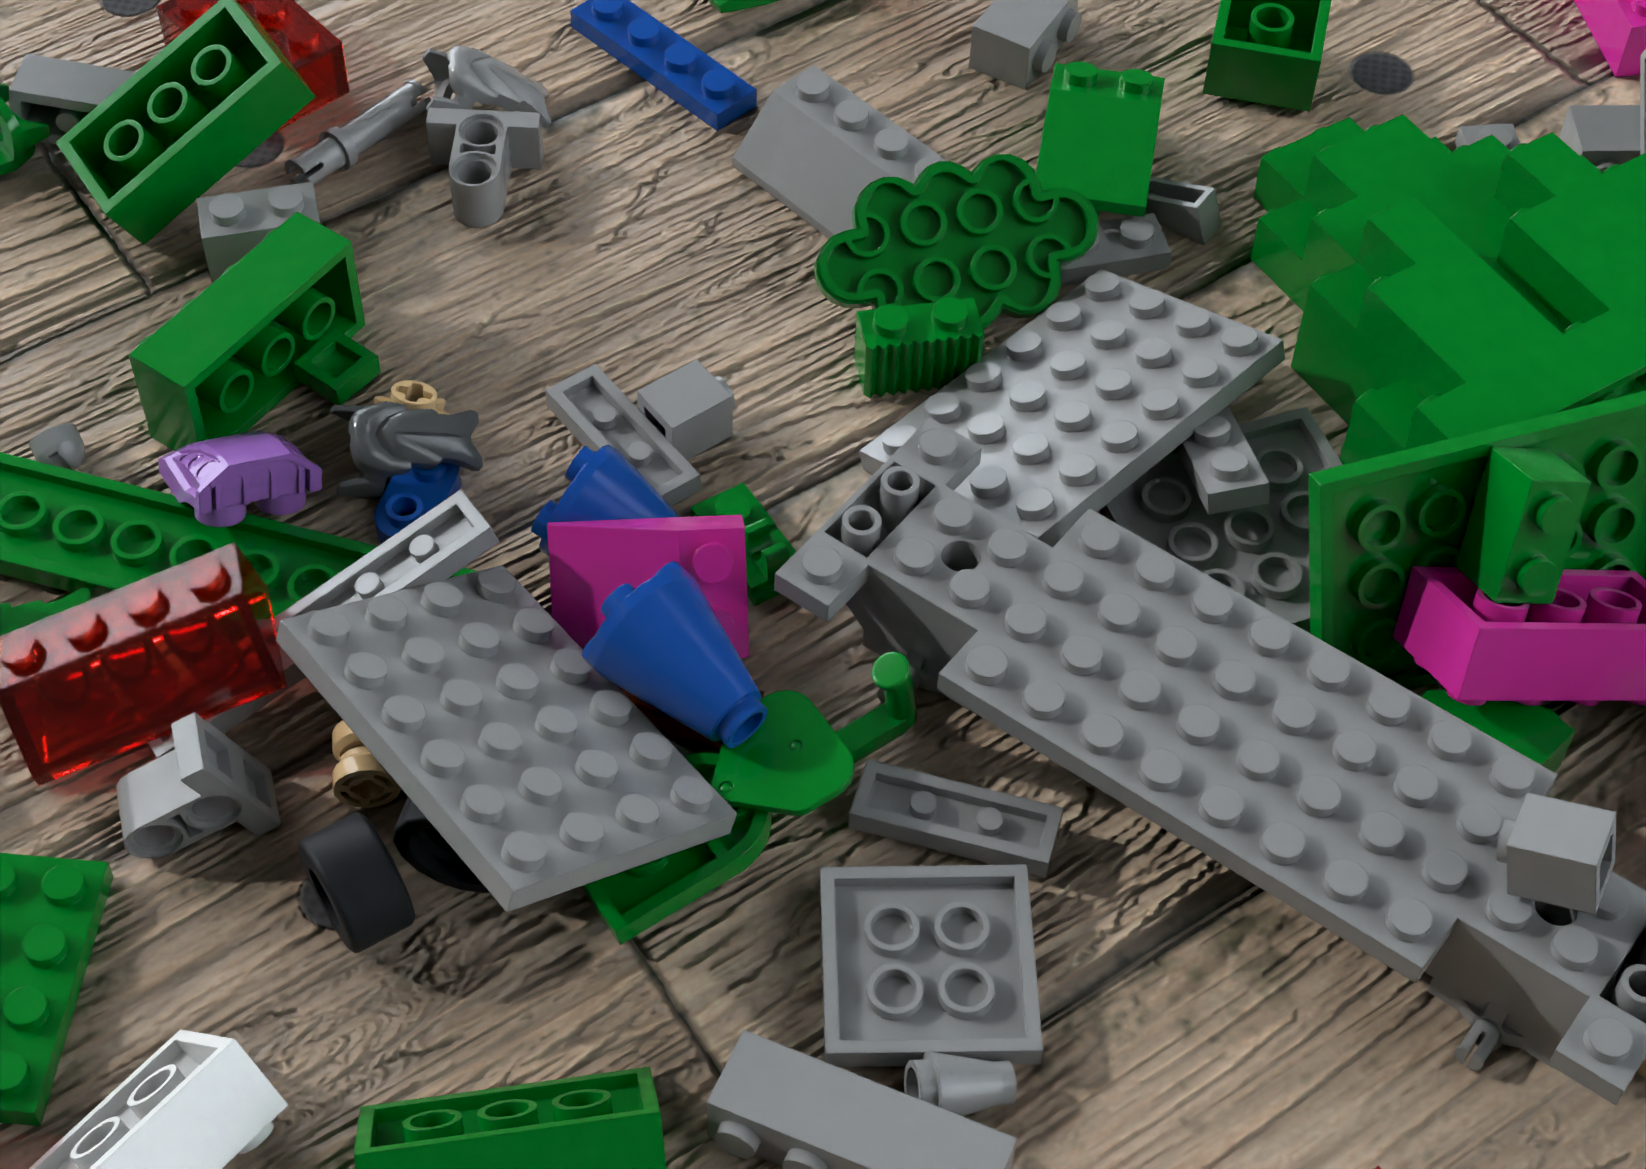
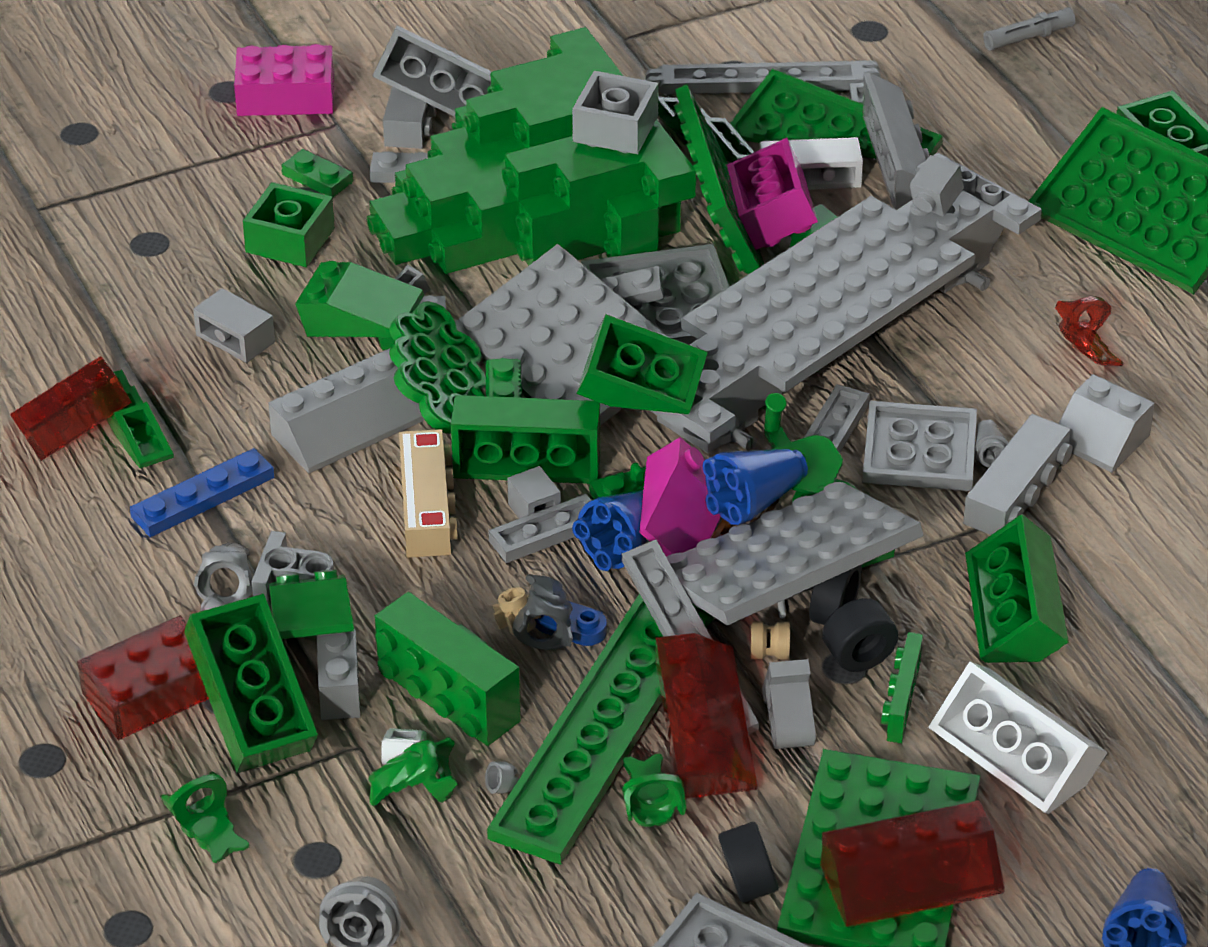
camera: 80 degrees left, 10 degrees down
(56, 325) = (416, 766): none -> green hair
(61, 91) = (184, 756): light grey brick -> none
(118, 327) = (397, 740): none -> white brick
(237, 469) = (556, 680): medium lavender slope -> none
(253, 972) = (902, 687): none -> green plate
(356, 169) = (311, 604): none -> green slope
(679, 282) = (425, 493): none -> tan brick
(799, 374) = (512, 435): none -> green brick
(879, 435) = (641, 369): none -> green slope
(1442, 74) = (317, 173): none -> green plate
(1522, 525) = (740, 162): green brick -> none
(1544, 299) = (615, 112): none -> light grey brick

